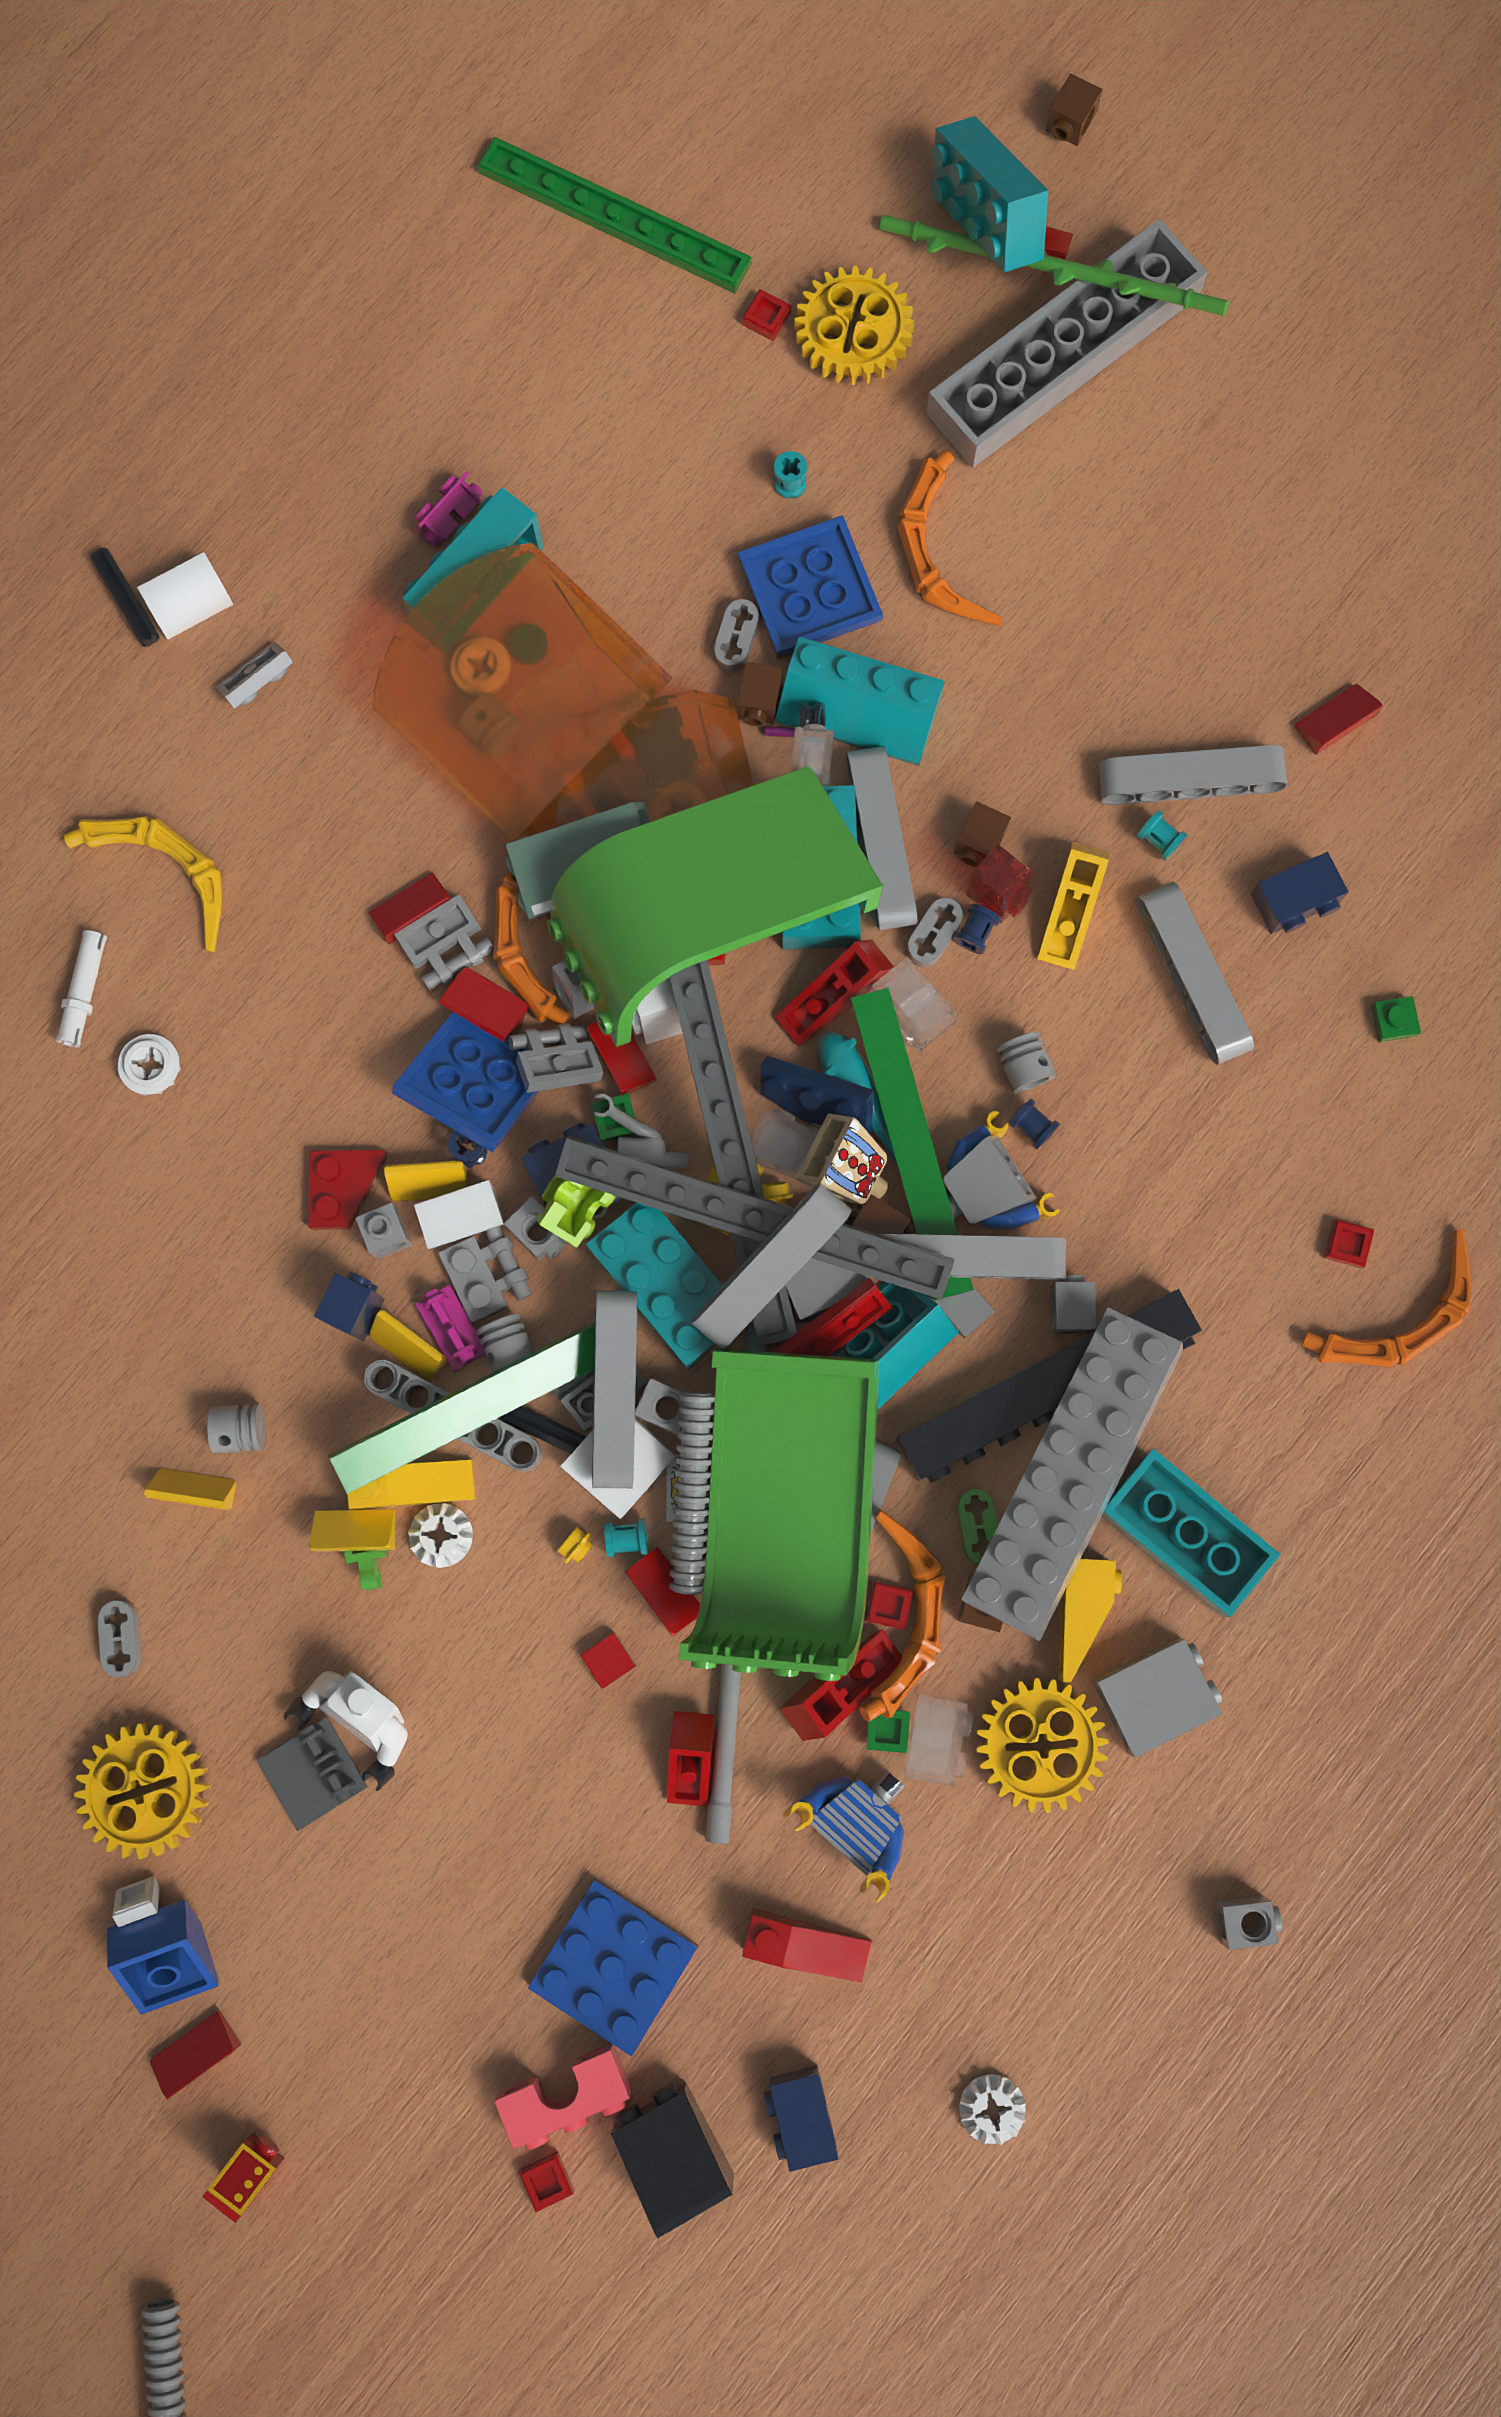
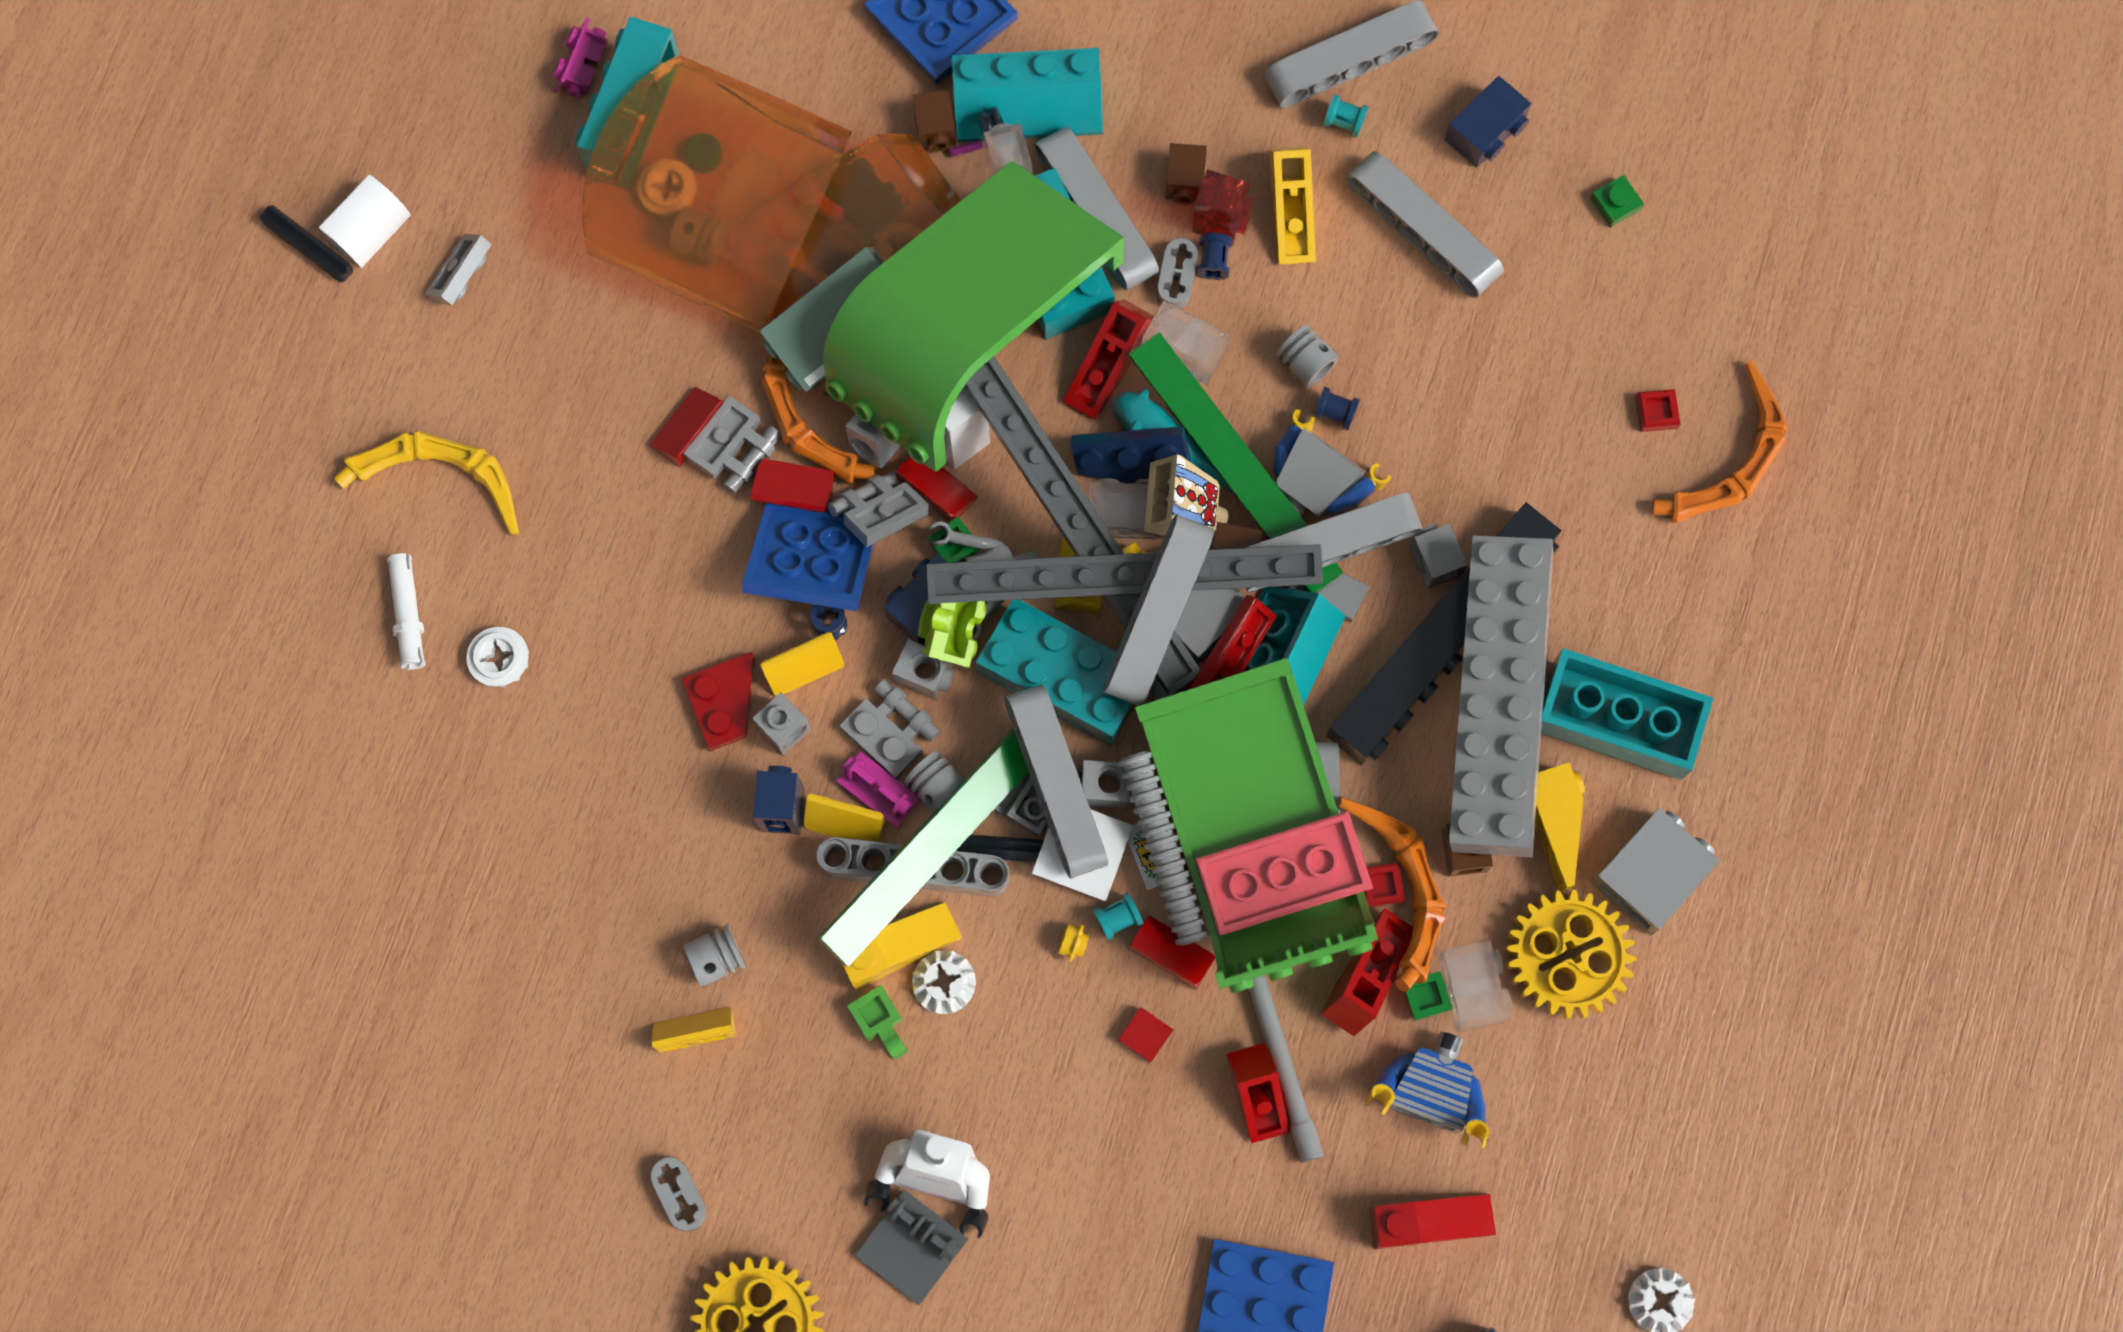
camera: 25 degrees left, 5 degrees down
(353, 1530) = (863, 1005): yellow slope -> none
(459, 1214) = (846, 681): white brick -> none
(729, 633) = (898, 77): light grey beam -> none
(794, 1564) = (1284, 873): none -> coral tile
(967, 1522) = (1425, 788): bright green beam -> none
(1230, 1917) = (1806, 1051): light grey brick -> none

